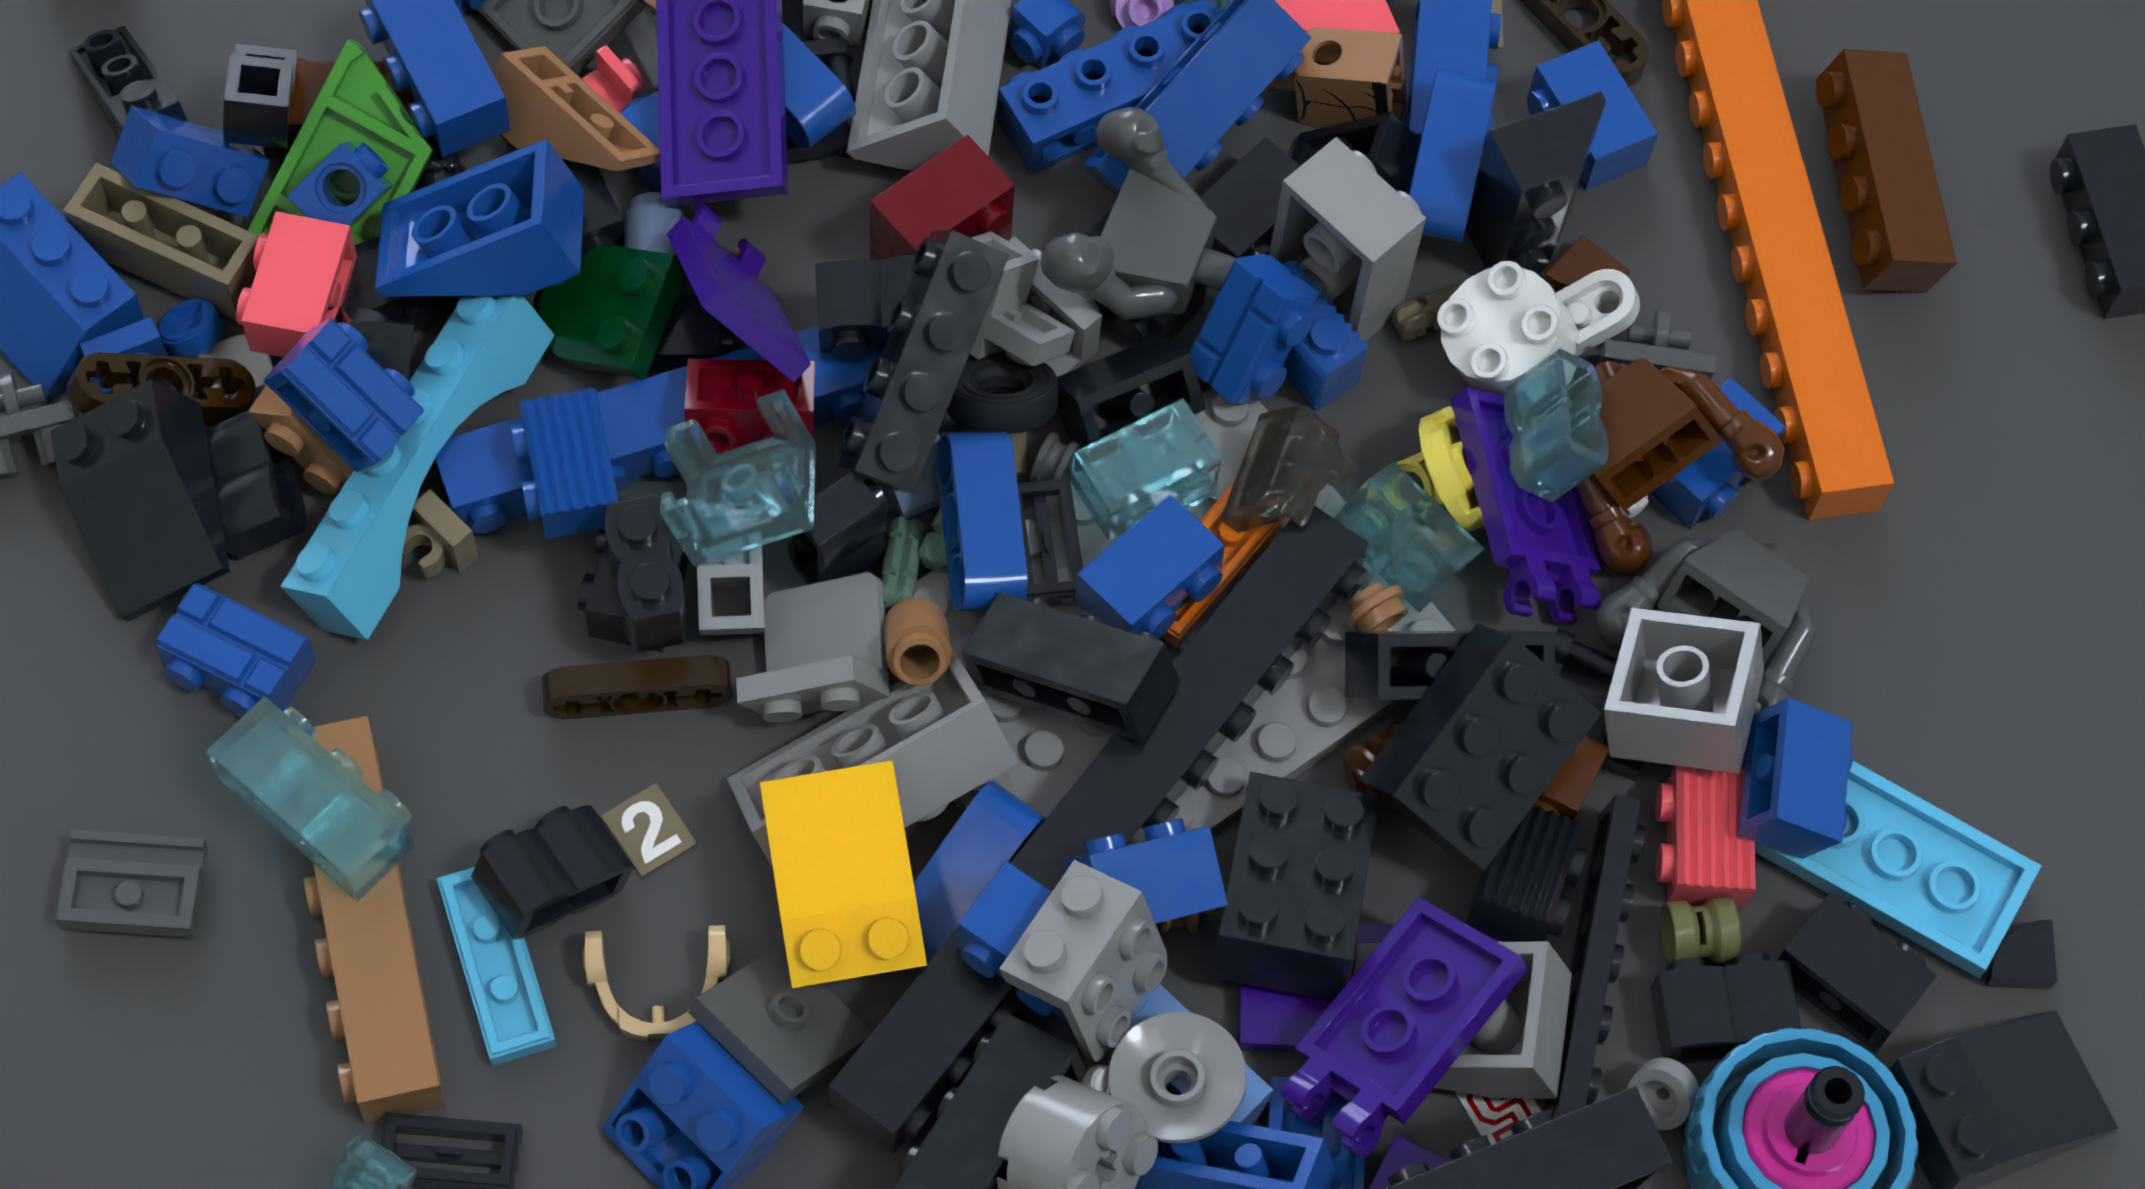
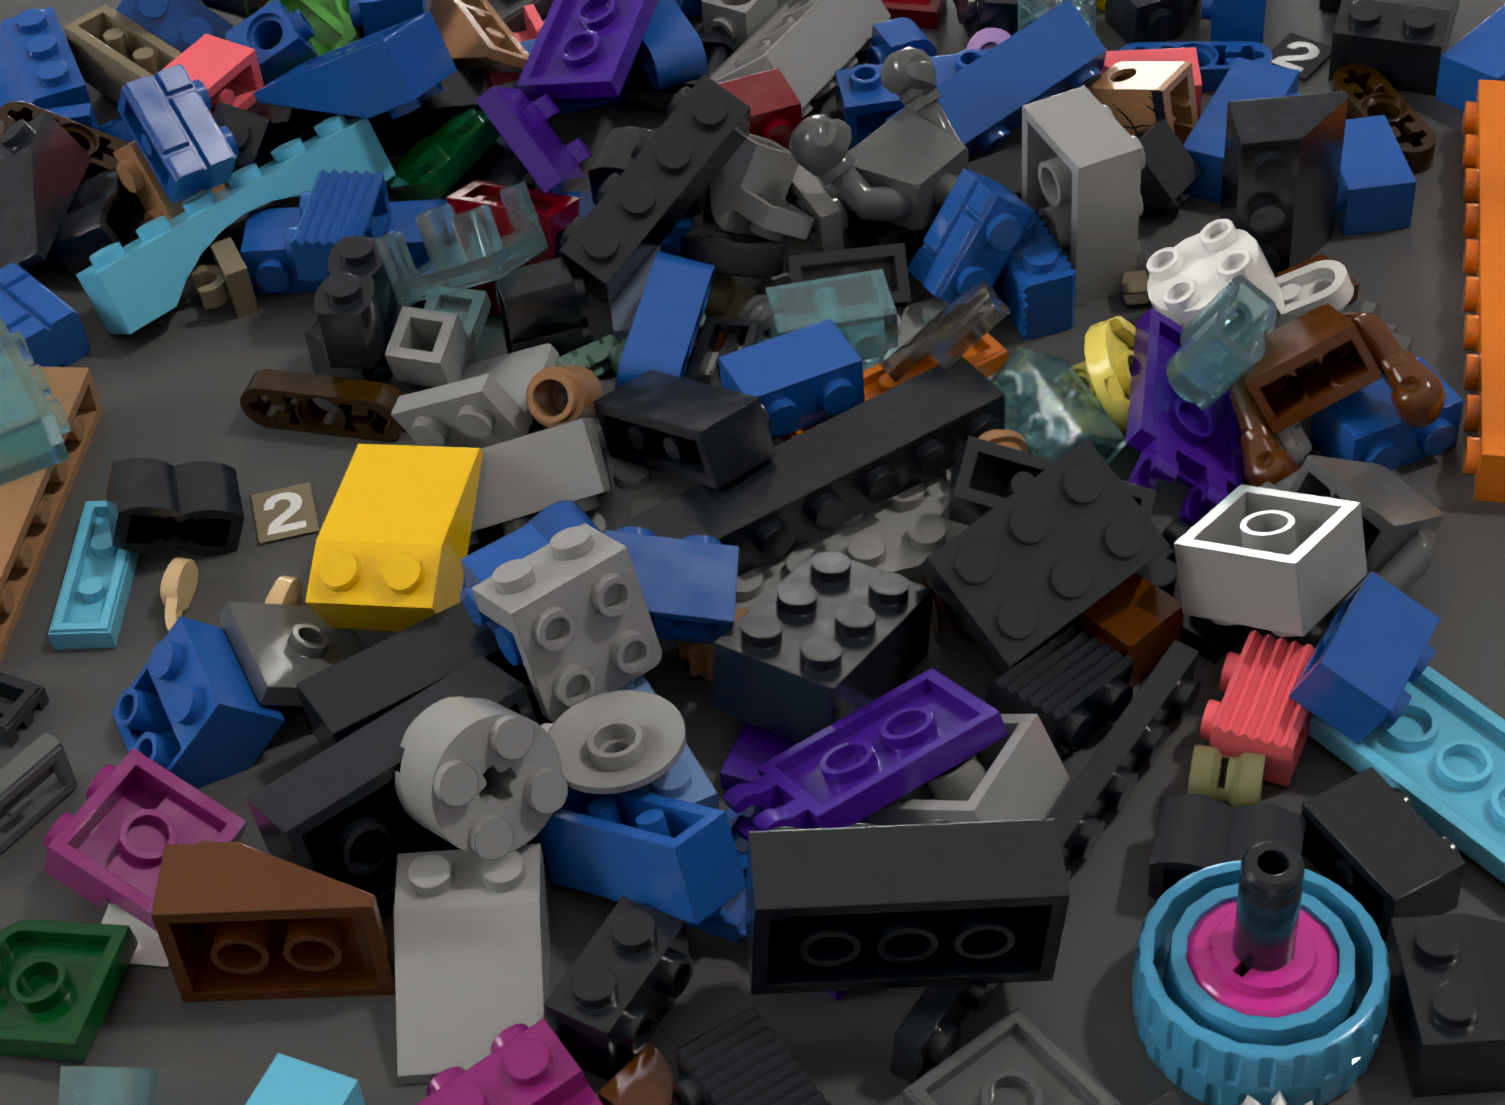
camera: 30 degrees right, 20 degrees down
(1451, 152) = (1190, 170): blue beam -> none
(1666, 1090) = (1122, 906): light grey tile -> none

